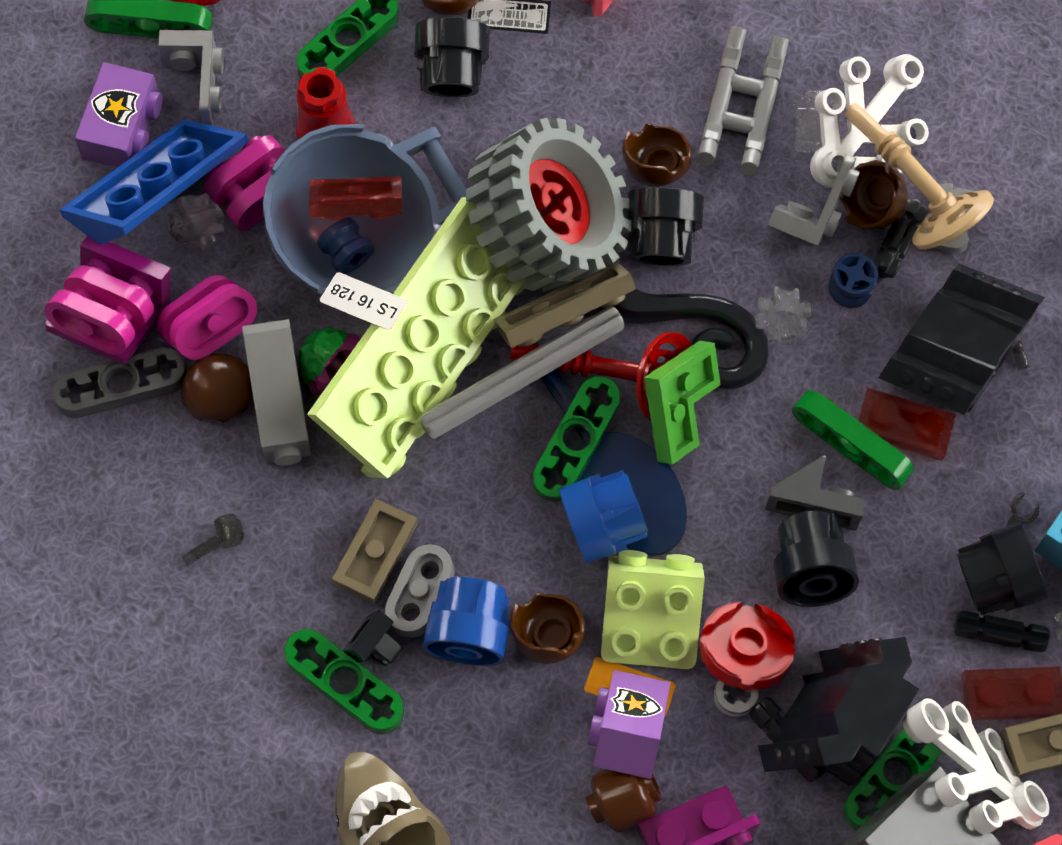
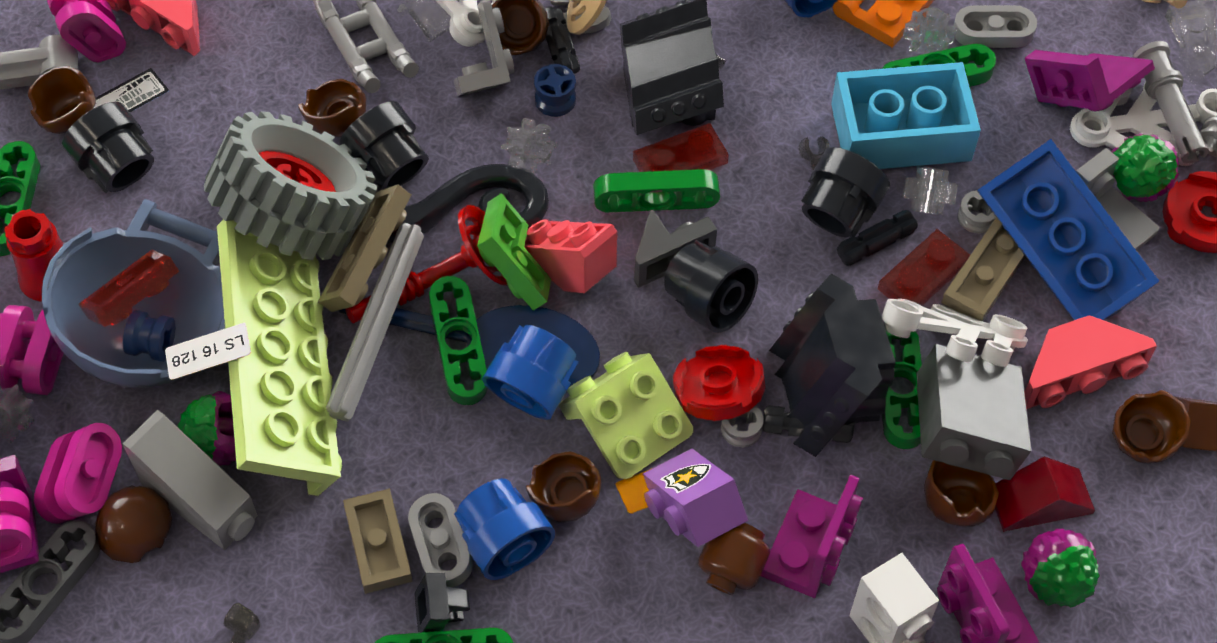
camera: 40 degrees left, 10 degrees down
(728, 436) = (573, 252): none -> coral slope

